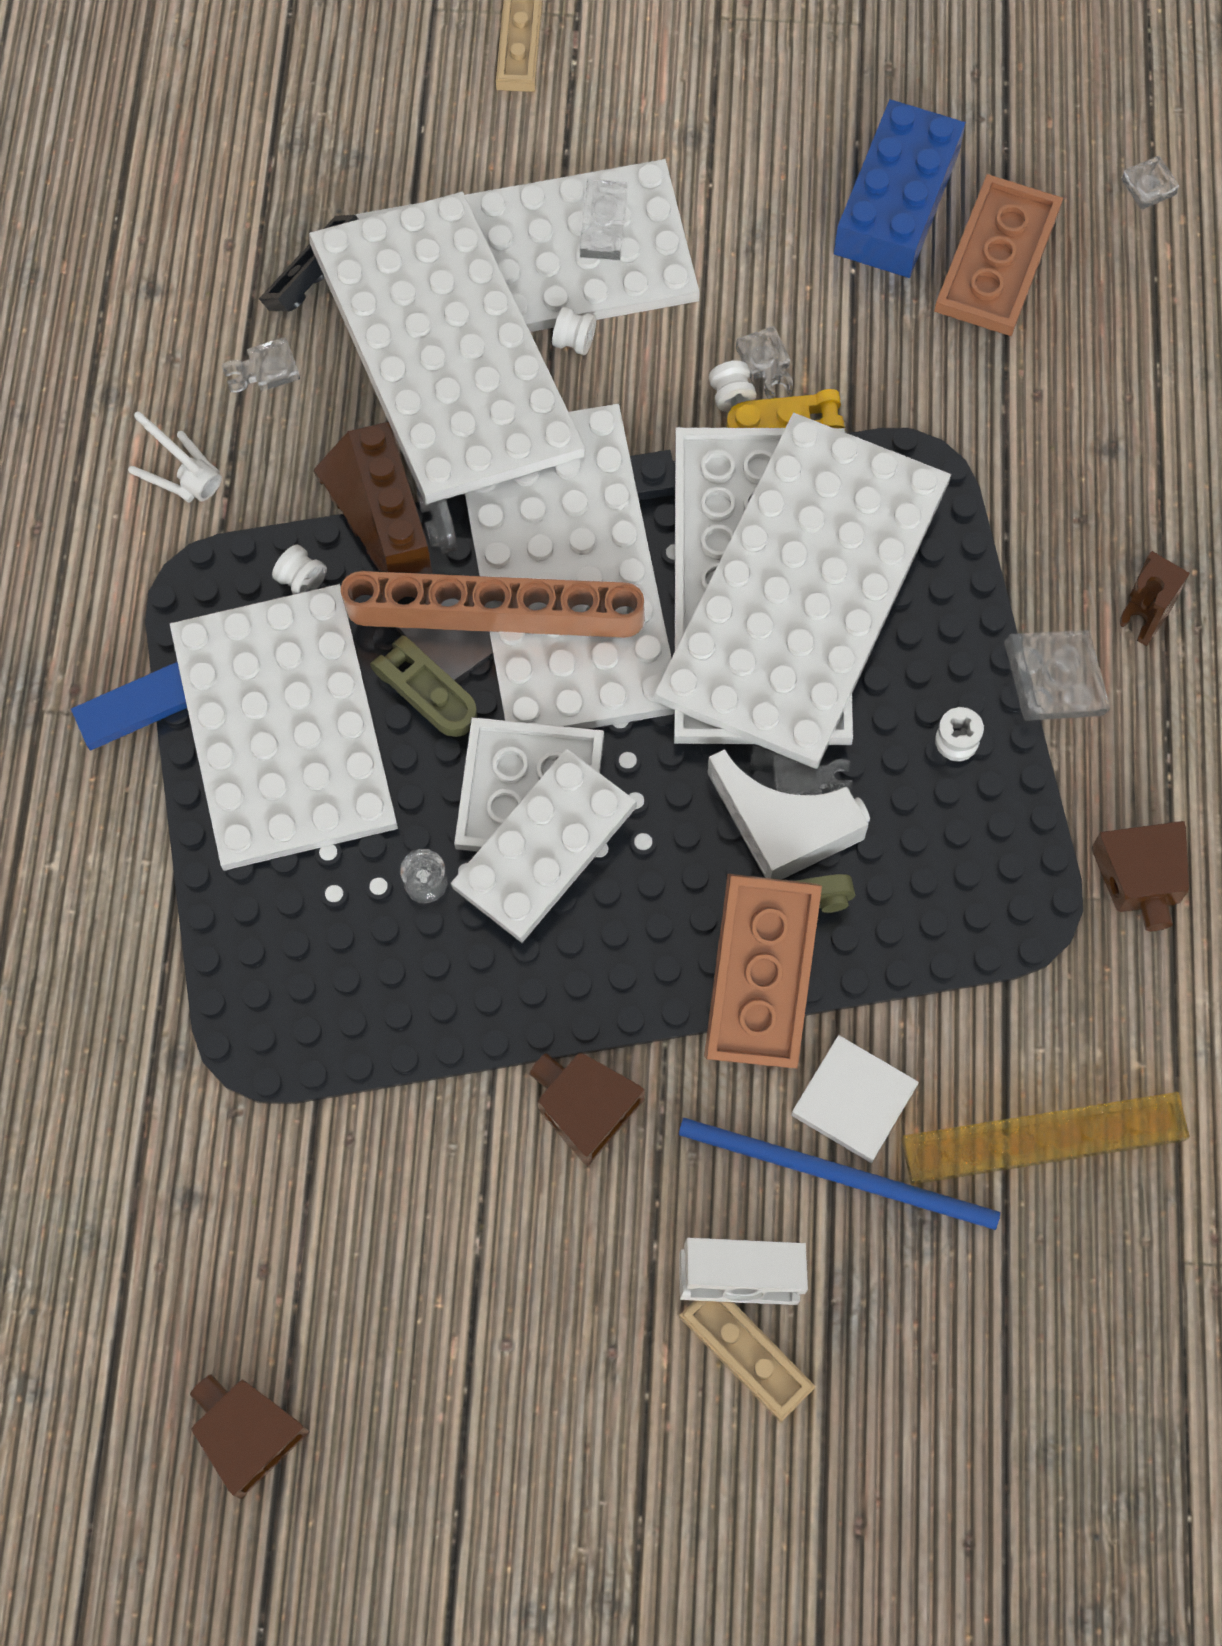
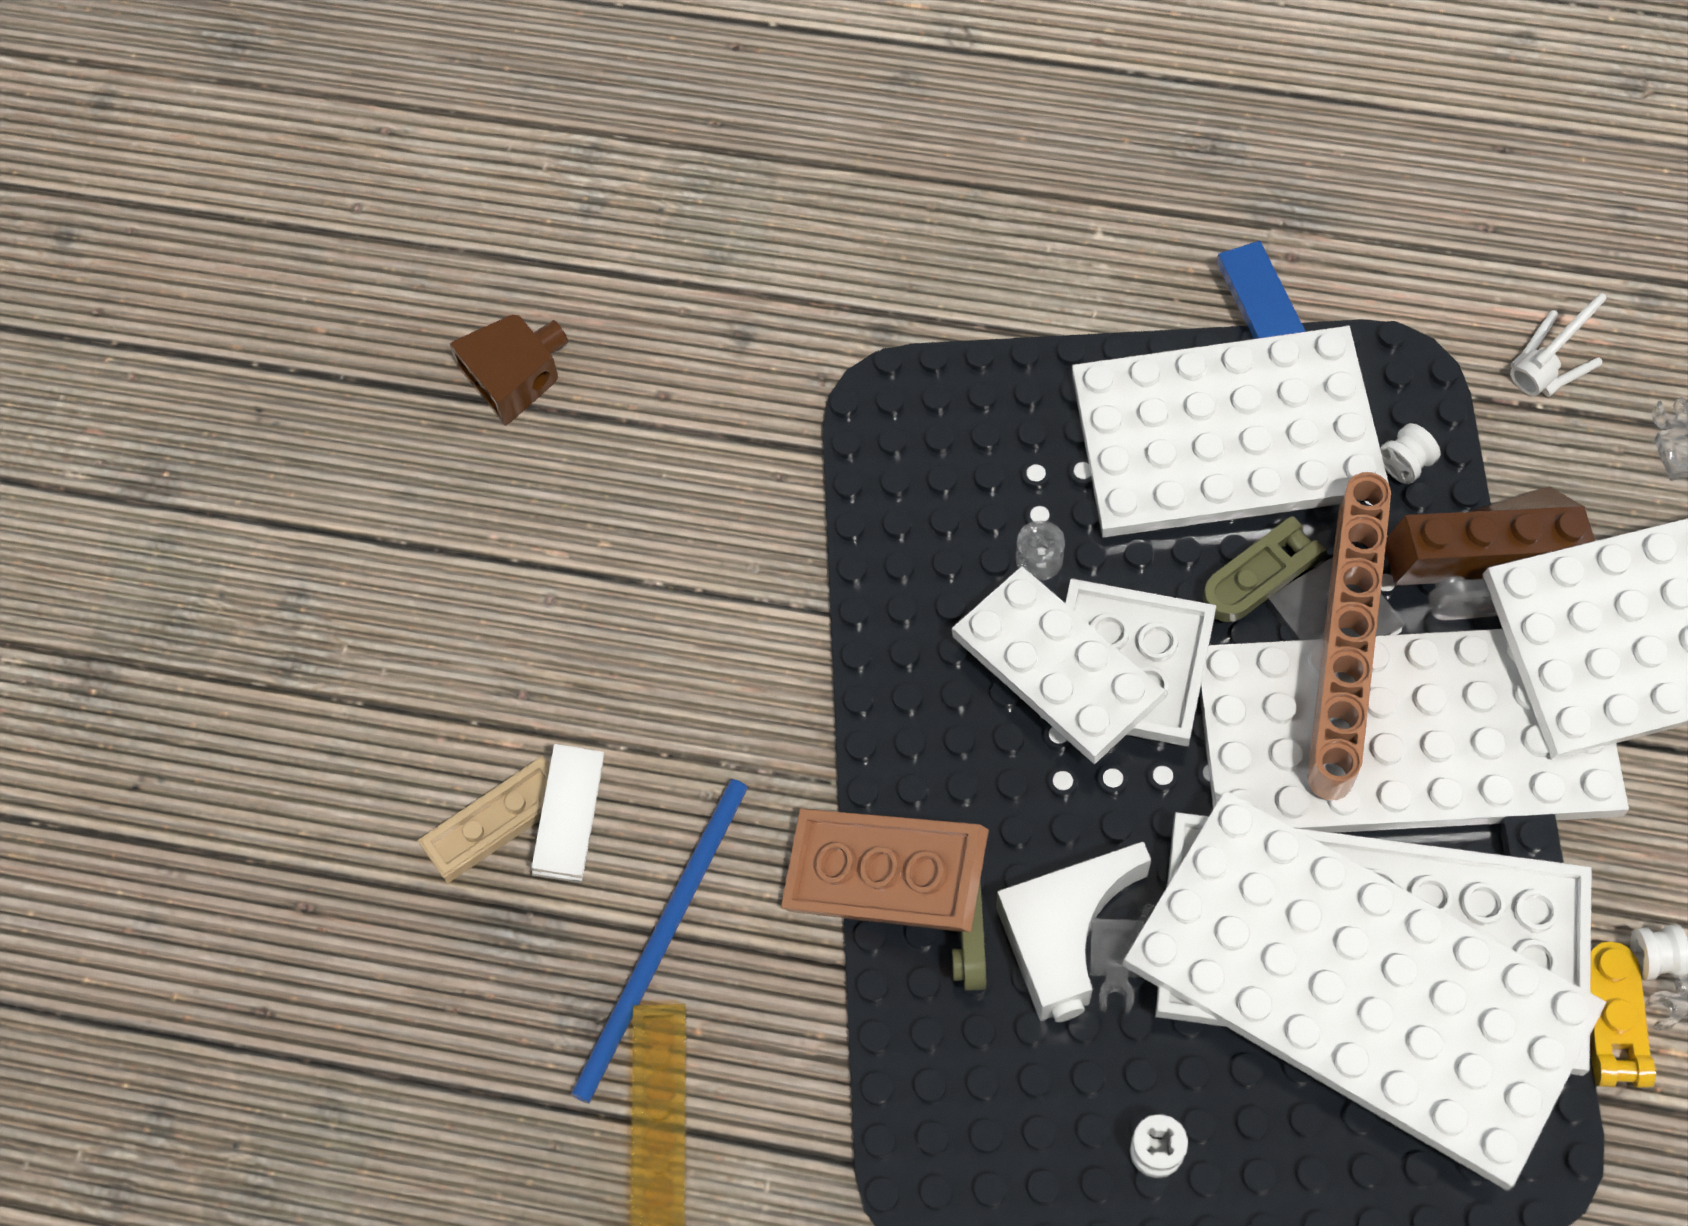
camera: 100 degrees right, 5 degrees down
(585, 1102) = (774, 687): reddish brown torso -> none
(854, 1099) = (739, 966): white tile -> none

